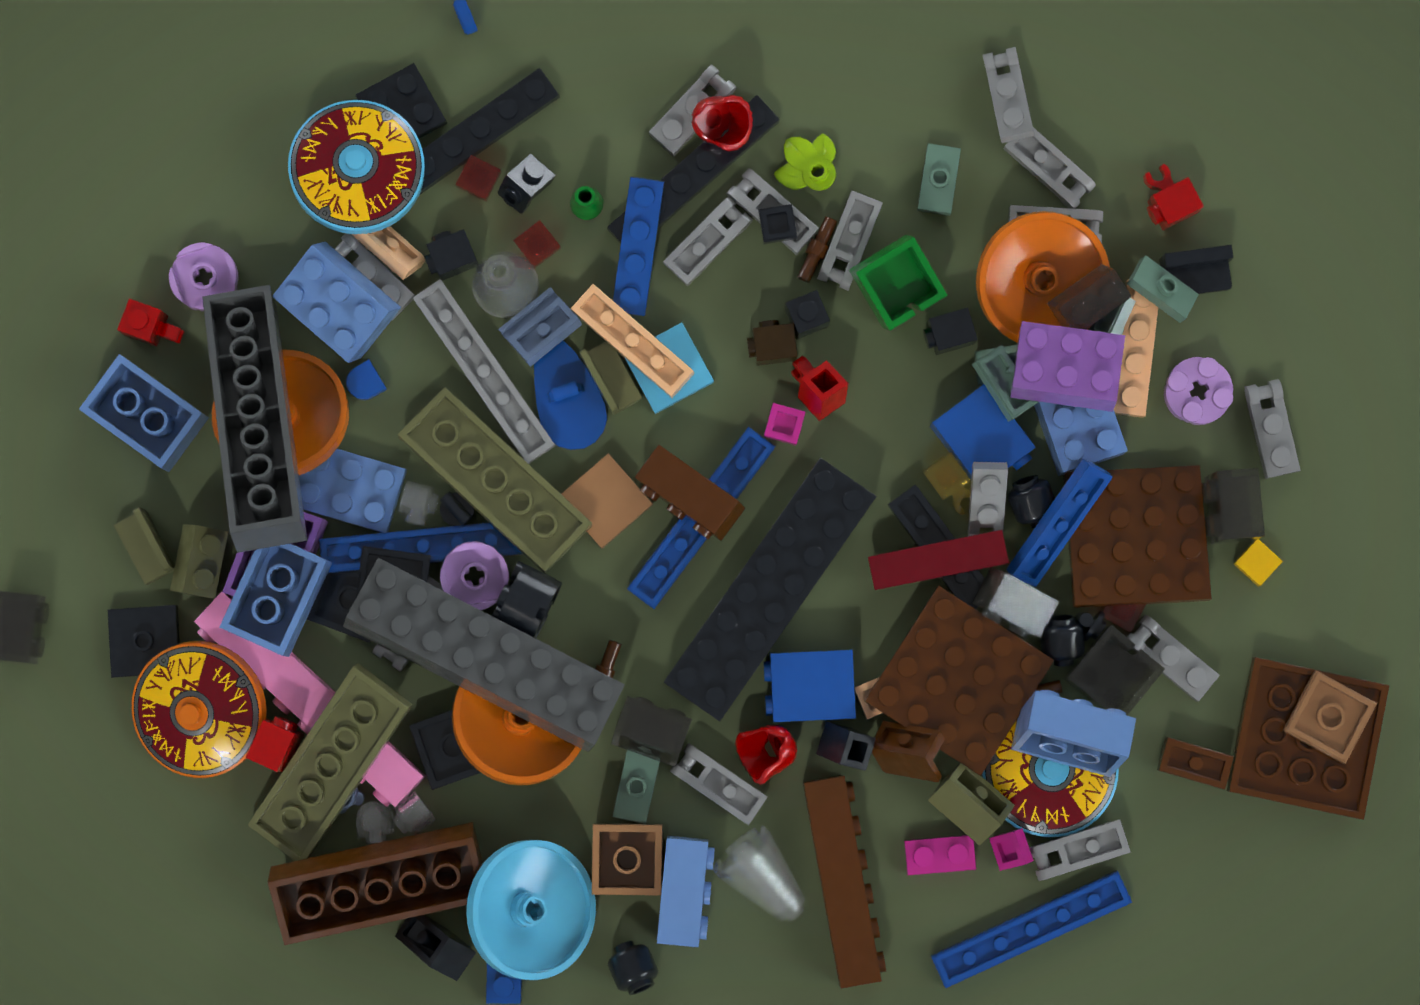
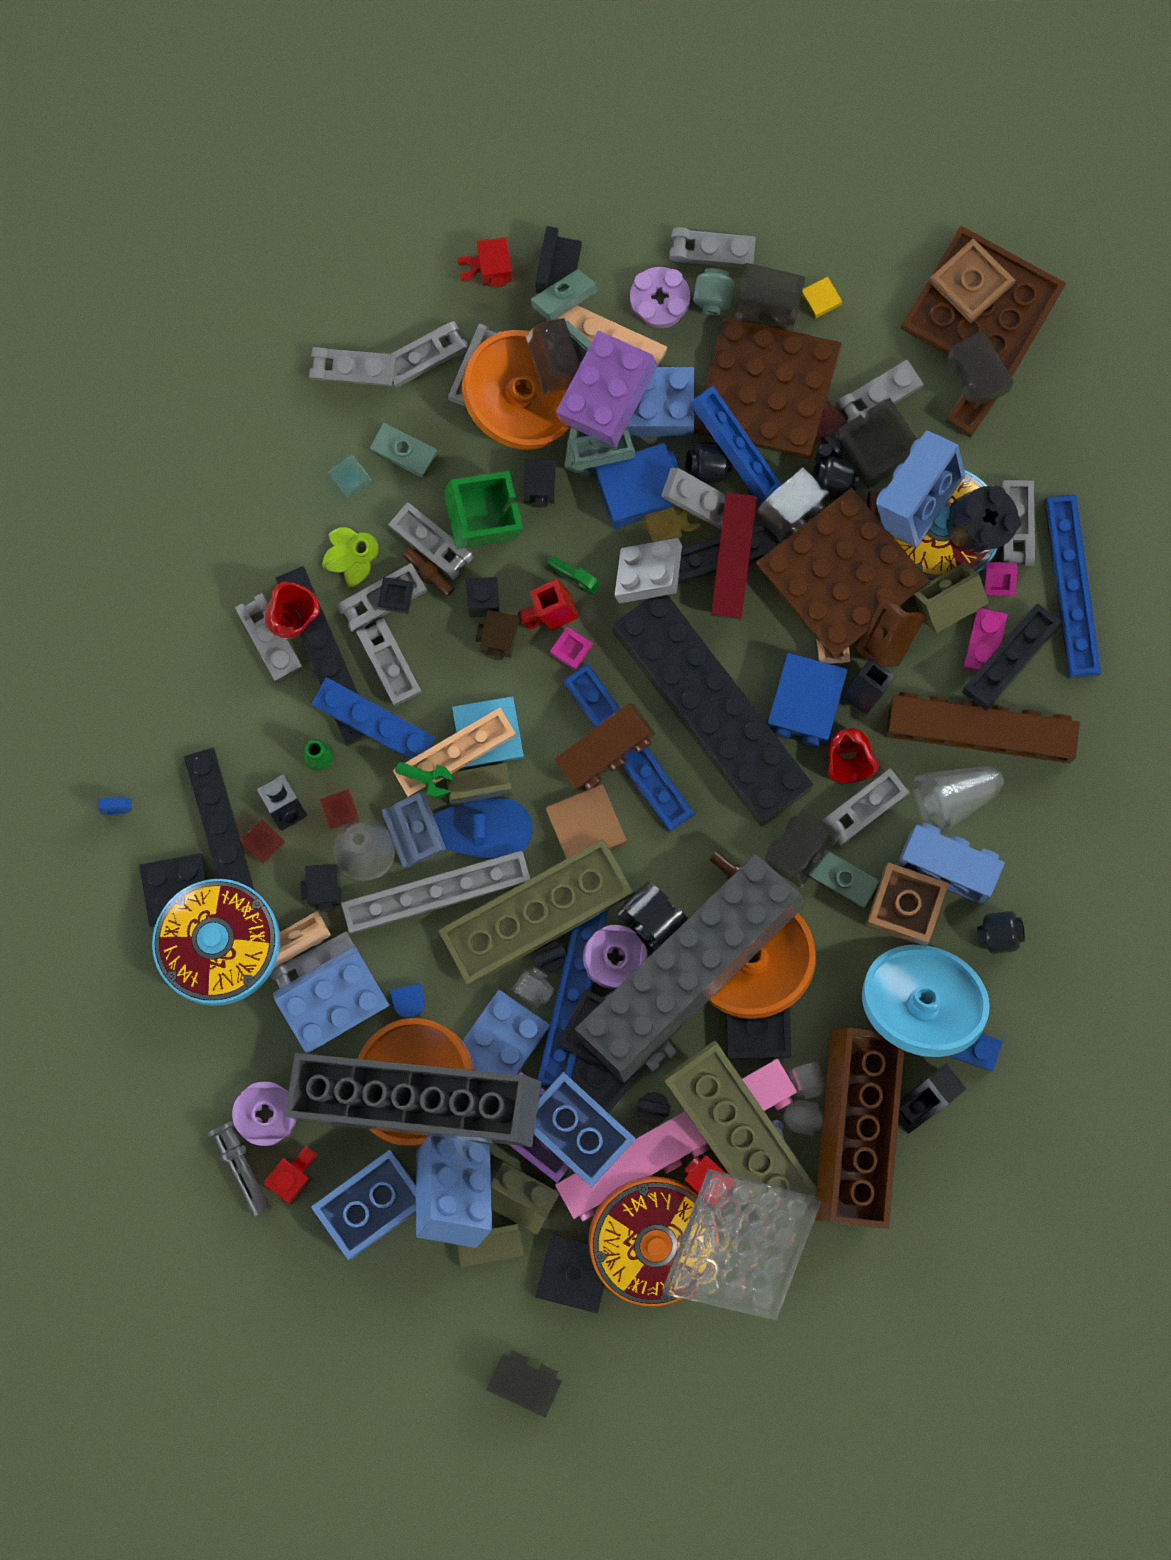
camera: 70 degrees left, 5 degrees down
(152, 260) = (233, 1154): none -> dark grey pin
(174, 491) = (453, 1191): none -> medium blue brick
(218, 800) = (741, 1245): none -> clear plate
(335, 665) = (653, 1108): none -> black plate
(595, 321) = (426, 777): none -> green bar
(864, 400) = (581, 577): none -> green bar
(890, 133) = (349, 476): none -> clear light blue plate
(891, 476) = (648, 570): none -> light grey plate
(929, 888) = (1011, 657): none -> black plate
(1081, 816) = (983, 519): none -> black brick
(1222, 445) = (714, 291): none -> sand green head
(1230, 755) = (979, 369): none -> clear smoke brick

